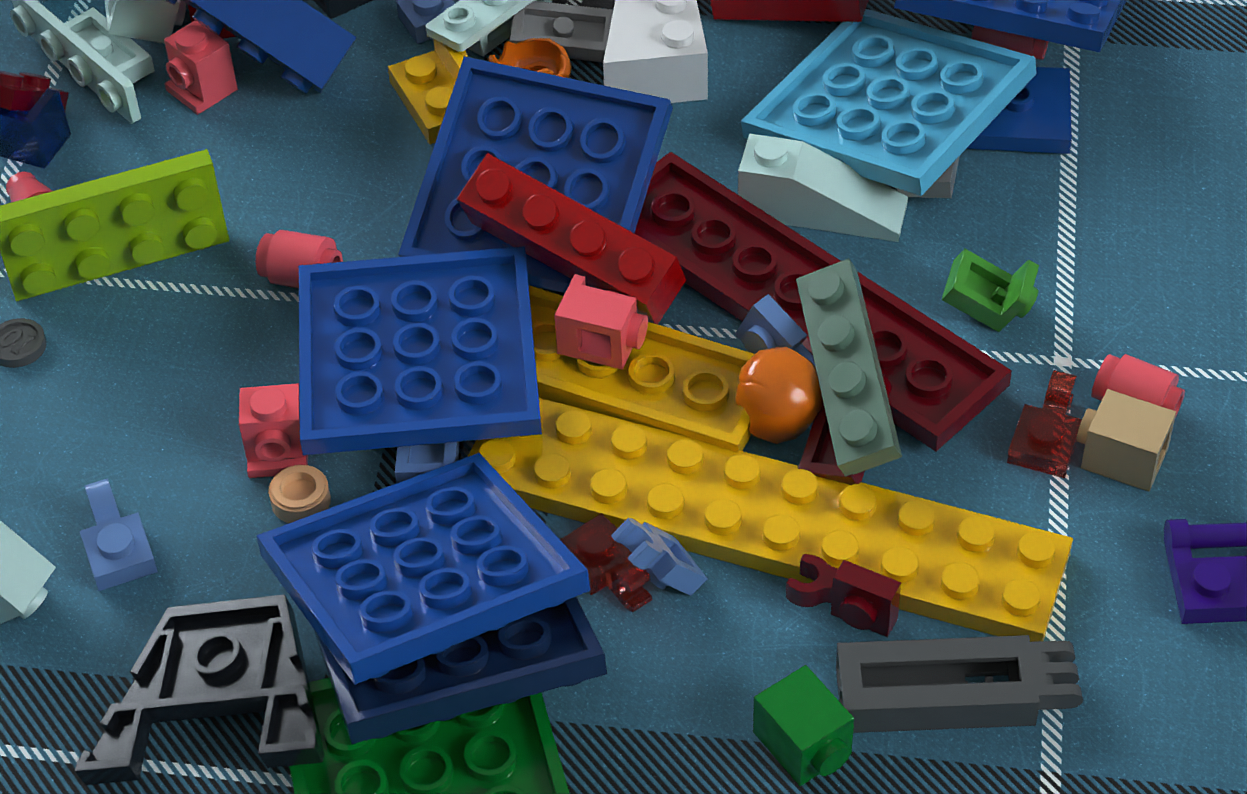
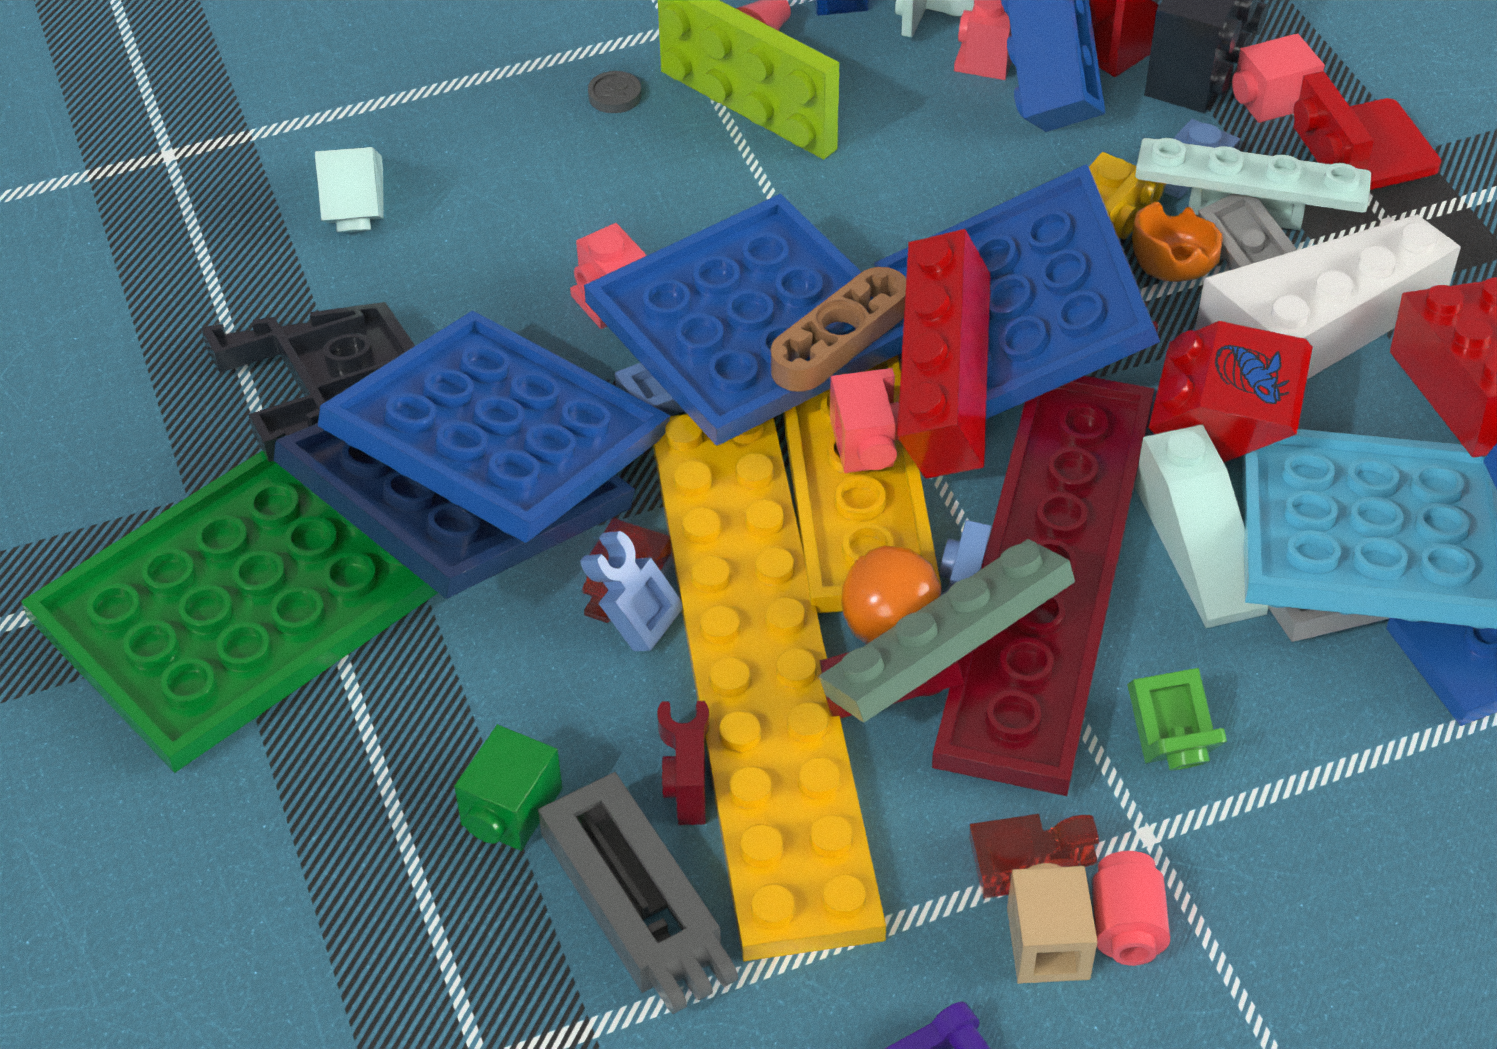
camera: 60 degrees right, 0 degrees up
(116, 545) = (442, 248): medium blue plate -> none
(283, 252) = (820, 199): coral brick -> none
(299, 492) = (568, 331): light nougat tile -> none
(495, 309) = (831, 350): none -> medium nougat beam
(721, 99) = (1234, 382): none -> red slope

